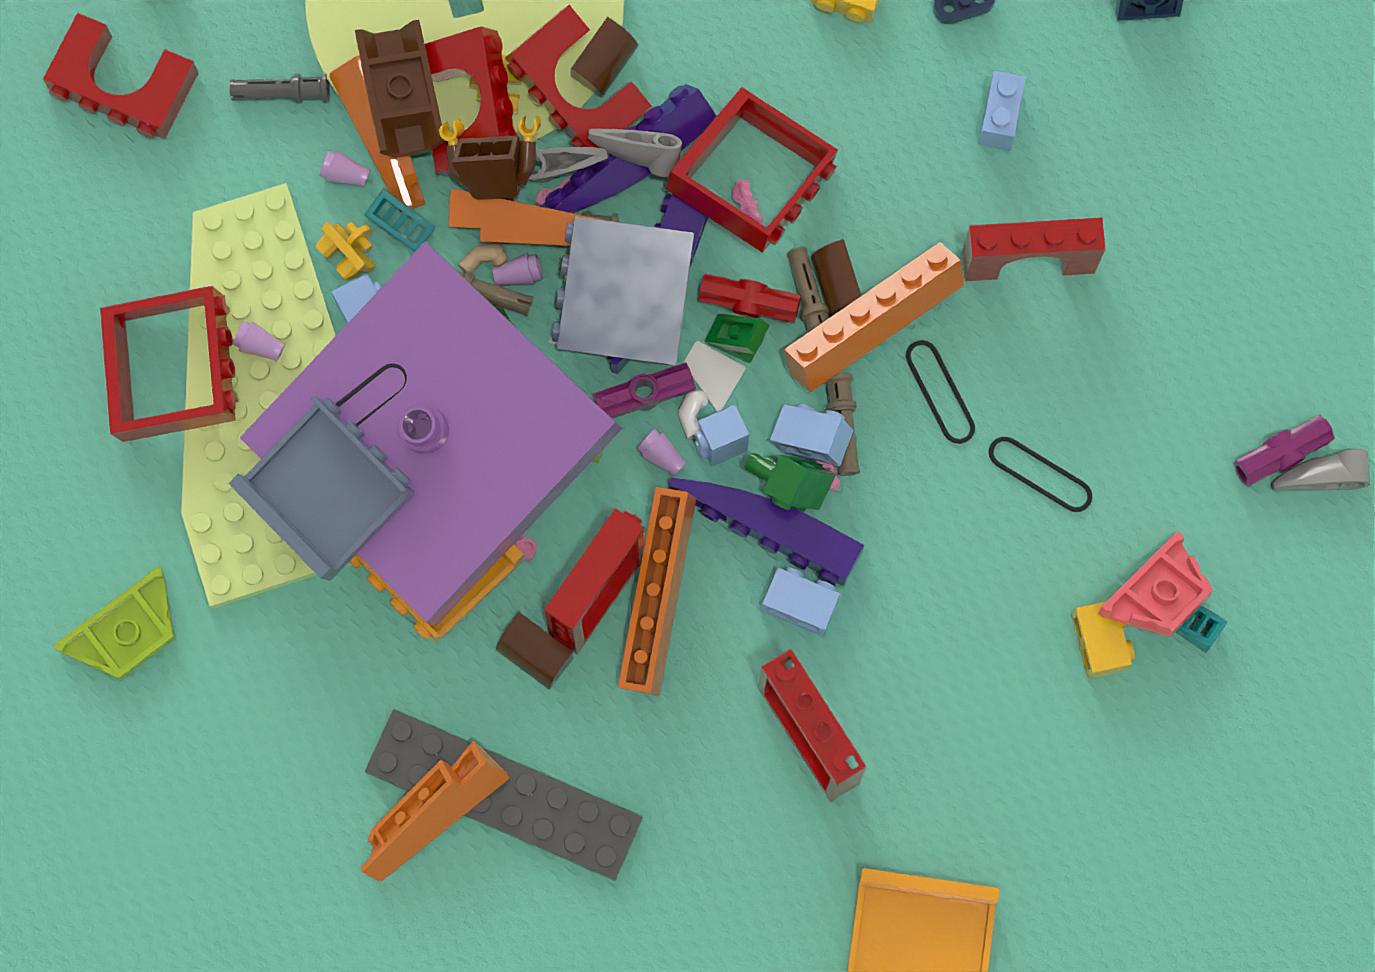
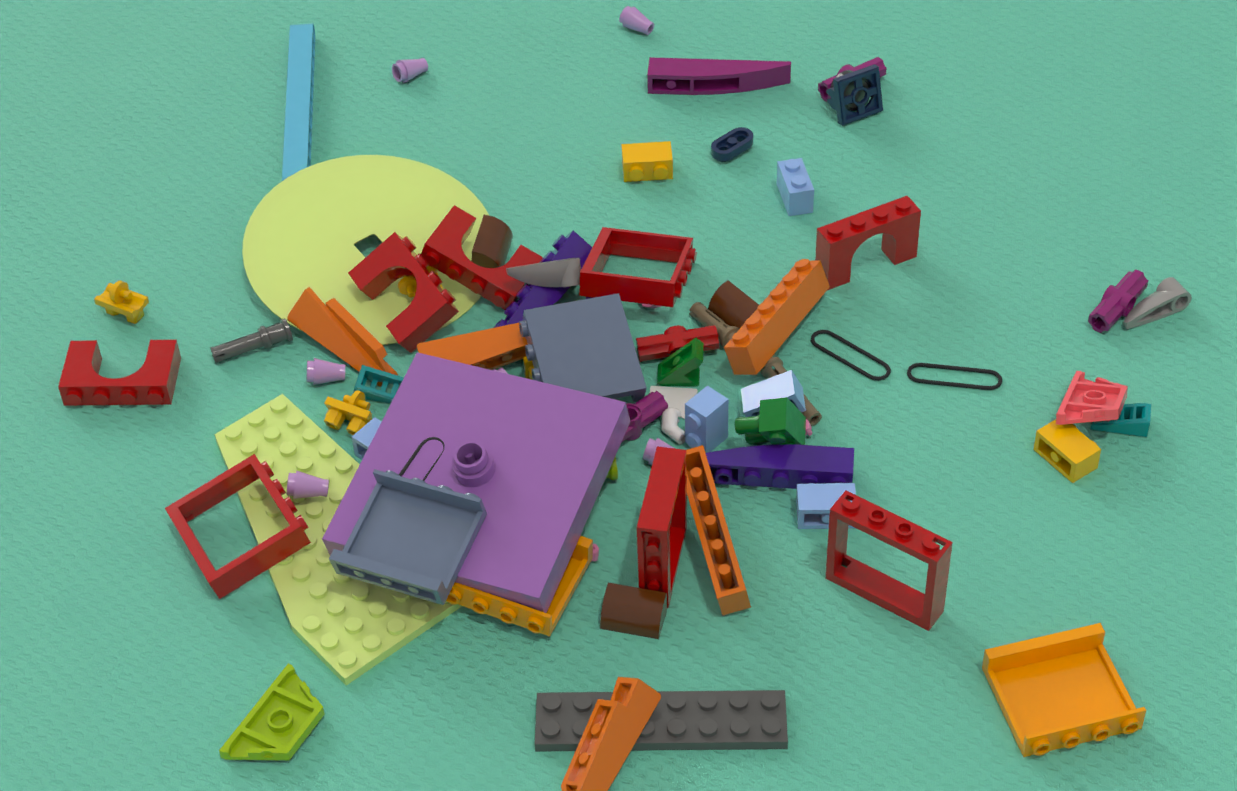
camera: 20 degrees left, 30 degrees down
(400, 90) = (352, 296): reddish brown piece -> none
(491, 164) = (443, 309): reddish brown torso -> none
(565, 160) = (490, 306): light grey piece -> none

